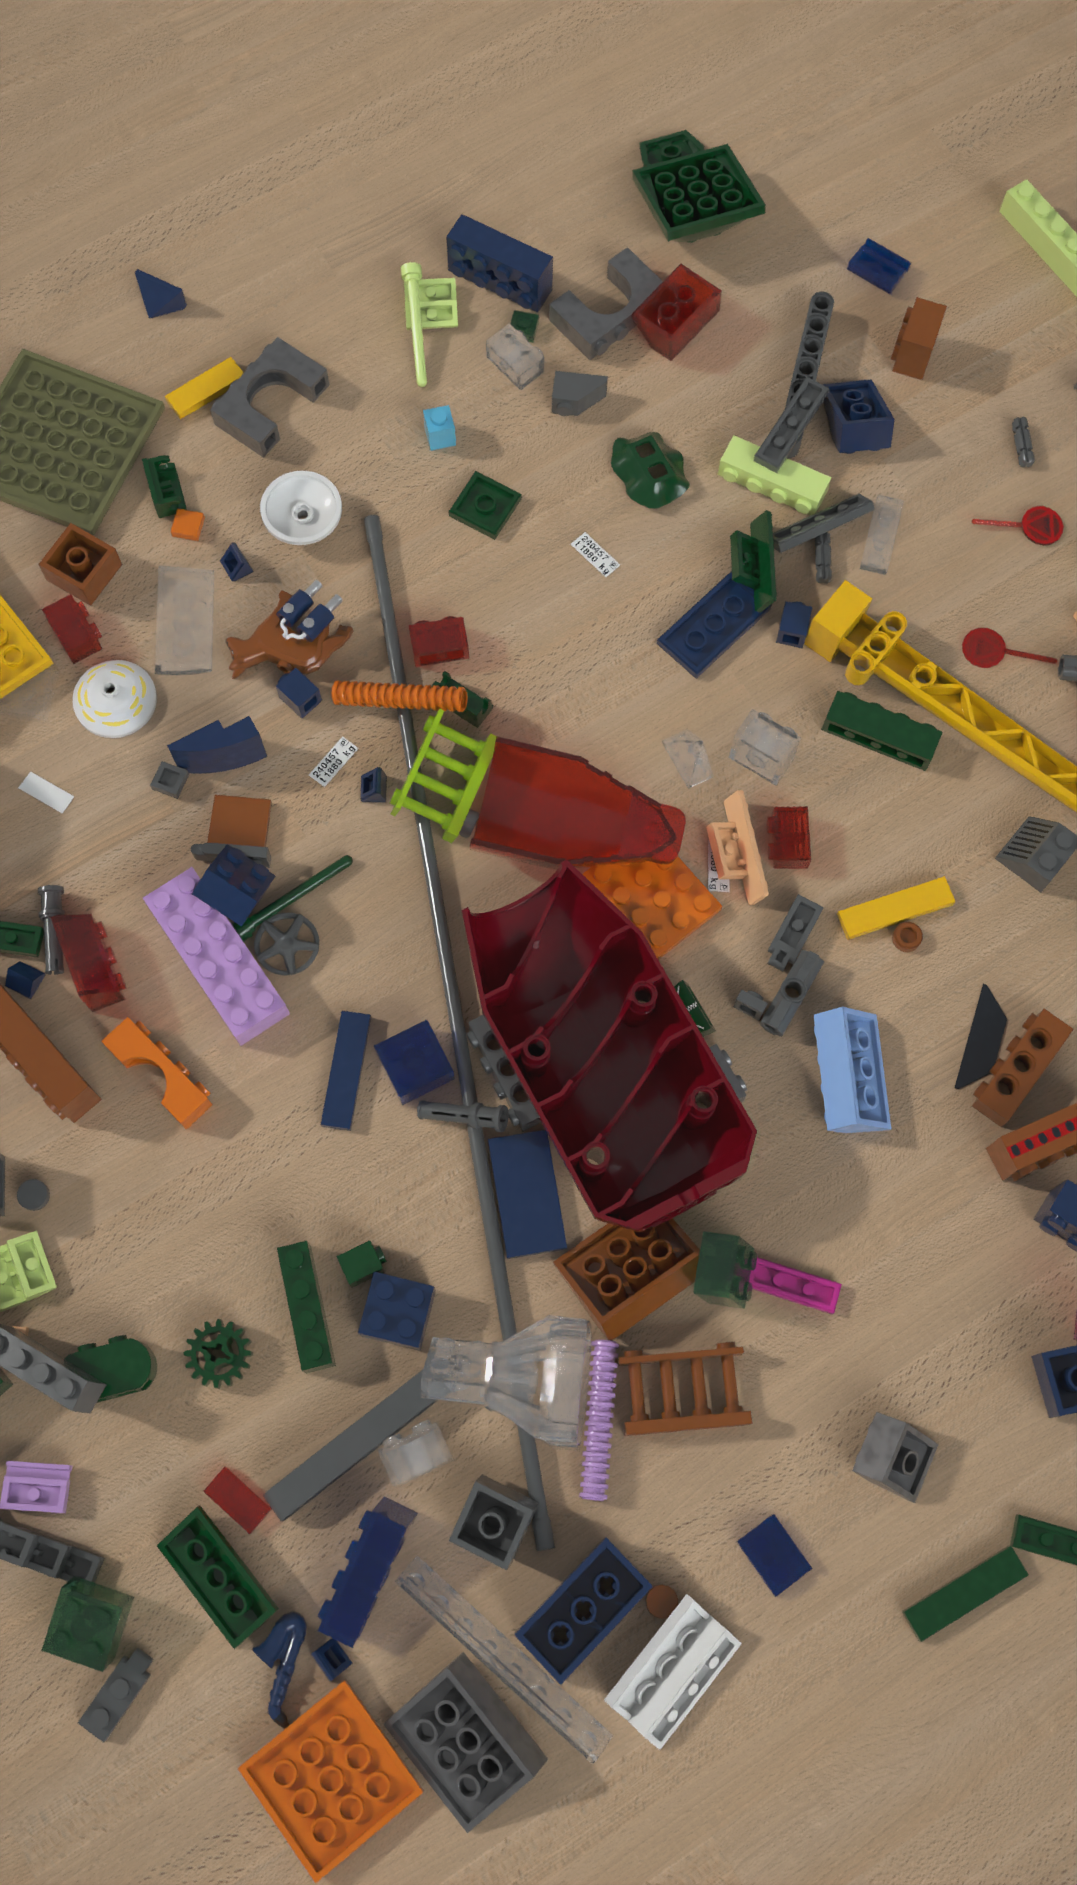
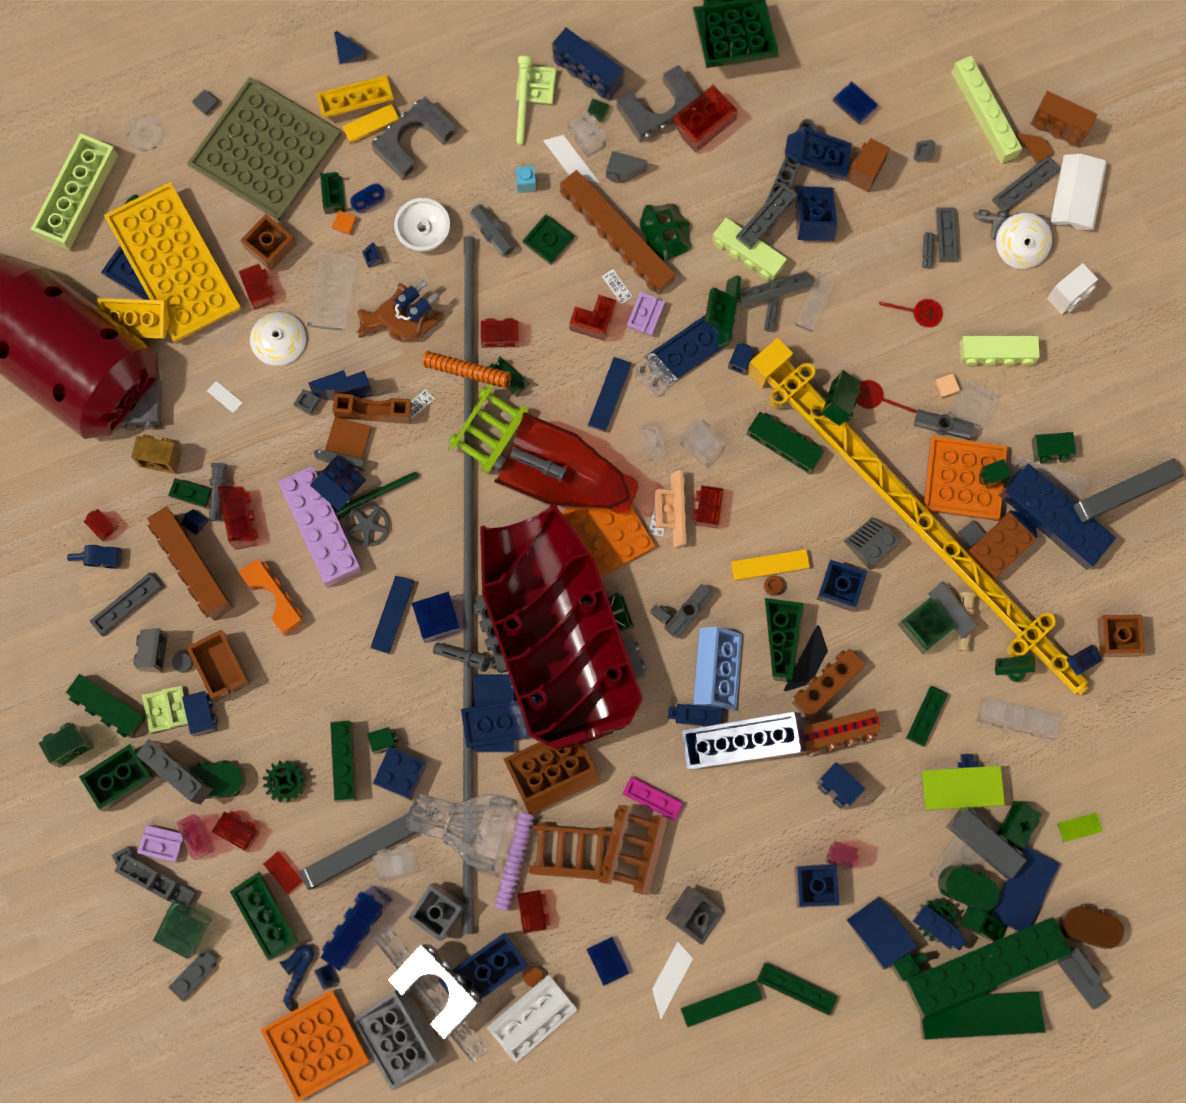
camera: 10 degrees right, 5 degrees up
(71, 1269) = (199, 713): none -> dark blue brick
(88, 1466) = (195, 837): none -> clear pink brick
(89, 1189) = (218, 665): none -> dark orange piece
(153, 1446) = (235, 831): none -> clear red brick
(176, 353) = (354, 96): none -> yellow slope
(214, 485) = (366, 197): none -> clear blue plate
(240, 776) = (390, 410): none -> dark orange arch
(298, 692) = (400, 355): dark blue brick -> none
(374, 786) = (440, 427): dark blue slope -> none
(403, 503) = (492, 230): none -> dark grey piece
(496, 395) = (569, 157): none -> white sticker
(532, 1209) = (494, 724): none -> dark blue tile
(542, 816) = (547, 467): none -> dark grey pin
(559, 1660) = (461, 998): none -> arch
(574, 604) = (595, 322): none -> clear red brick
(582, 480) = (616, 232): none -> dark orange brick
(613, 703) = (609, 394): none -> dark blue tile
(642, 1495) = (532, 911): none -> clear red brick
(644, 584) = (645, 314): none -> lavender plate
(677, 659) = (657, 371): none -> clear brick
(724, 1270) = (609, 782): clear green brick -> none
(793, 932) = (698, 571): dark grey hinge -> none
(807, 1373) = (650, 855): none -> dark orange fence
(834, 1146) = (695, 715): none -> dark blue hinge
(847, 330) = (819, 152): none -> dark blue slope
(877, 1564) = (671, 977): none -> white sticker
(920, 1171) = (744, 741): none -> brick
(940, 1003) = (784, 629): none -> dark green wedge
(953, 653) = (841, 398): none -> dark green brick
(989, 312) = (924, 150): none -> dark grey plate
(1010, 919) = (841, 585): none -> dark blue brick
(1044, 418) = (946, 235): none -> dark grey tile

